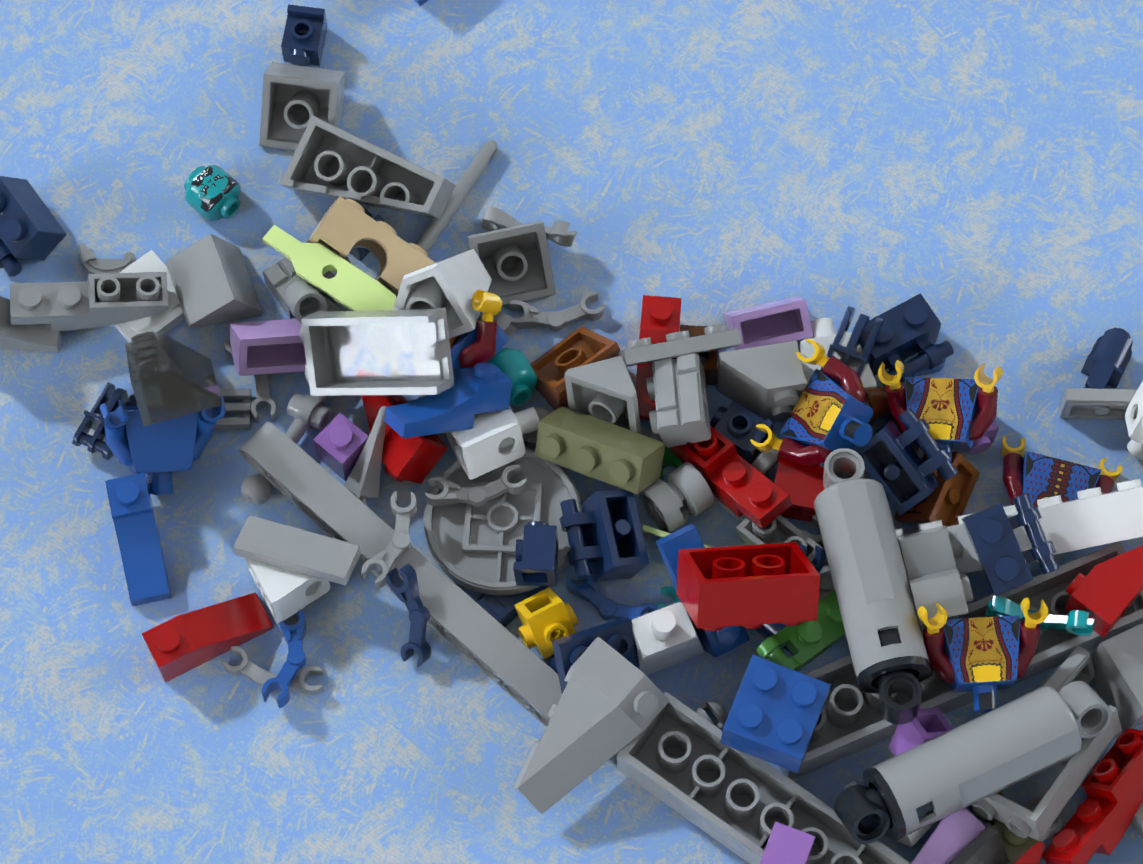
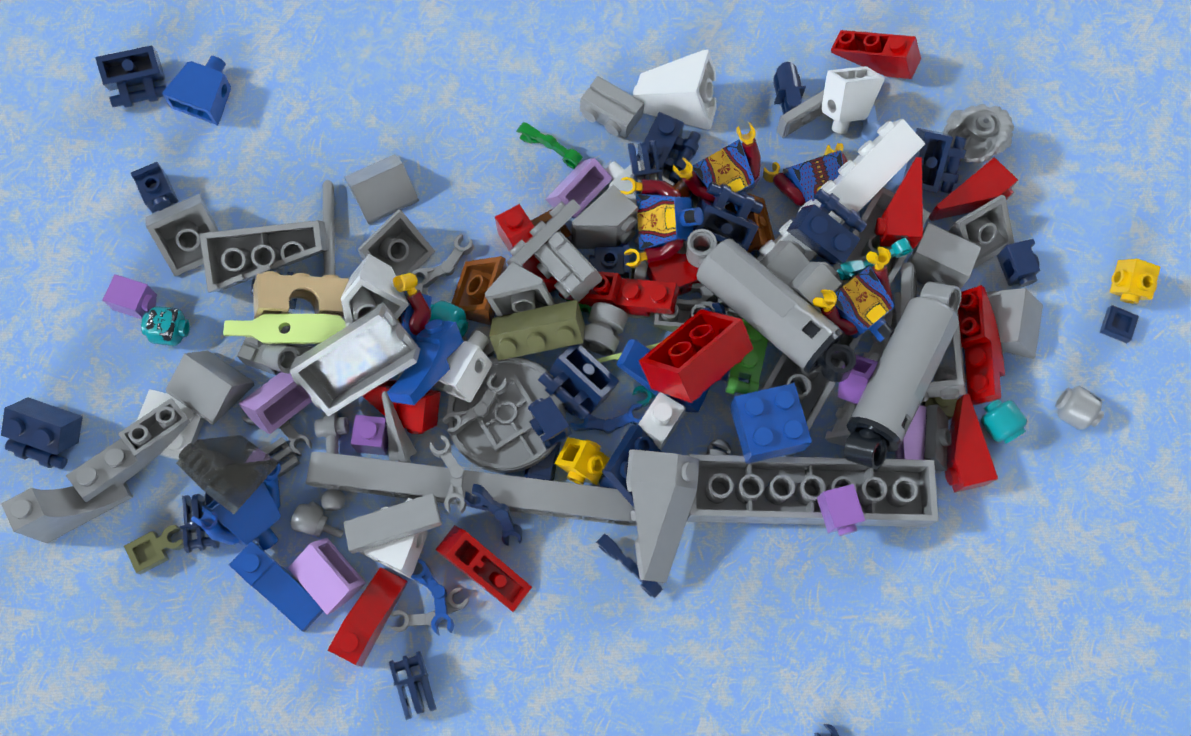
camera: 40 degrees left, 5 degrees up
(39, 416) = (151, 549): none -> olive plate
(101, 266) = (122, 421): light grey piece -> none
(195, 562) = (326, 575): none -> lavender brick
(198, 138) = (129, 296): none -> medium lavender brick
(203, 730) = (412, 683): none -> dark blue arm
(218, 495) = (310, 520): none -> light grey piece
(361, 666) = (483, 567): none -> red slope
(497, 219) = (366, 228): light grey piece -> none
(512, 745) = (610, 548): none -> dark blue piece
(546, 186) = (382, 188): none -> light grey slope
(757, 229) = (532, 135): none -> green piece
(874, 255) = (611, 107): none -> light grey brick
(970, 286) = (681, 90): none -> white slope

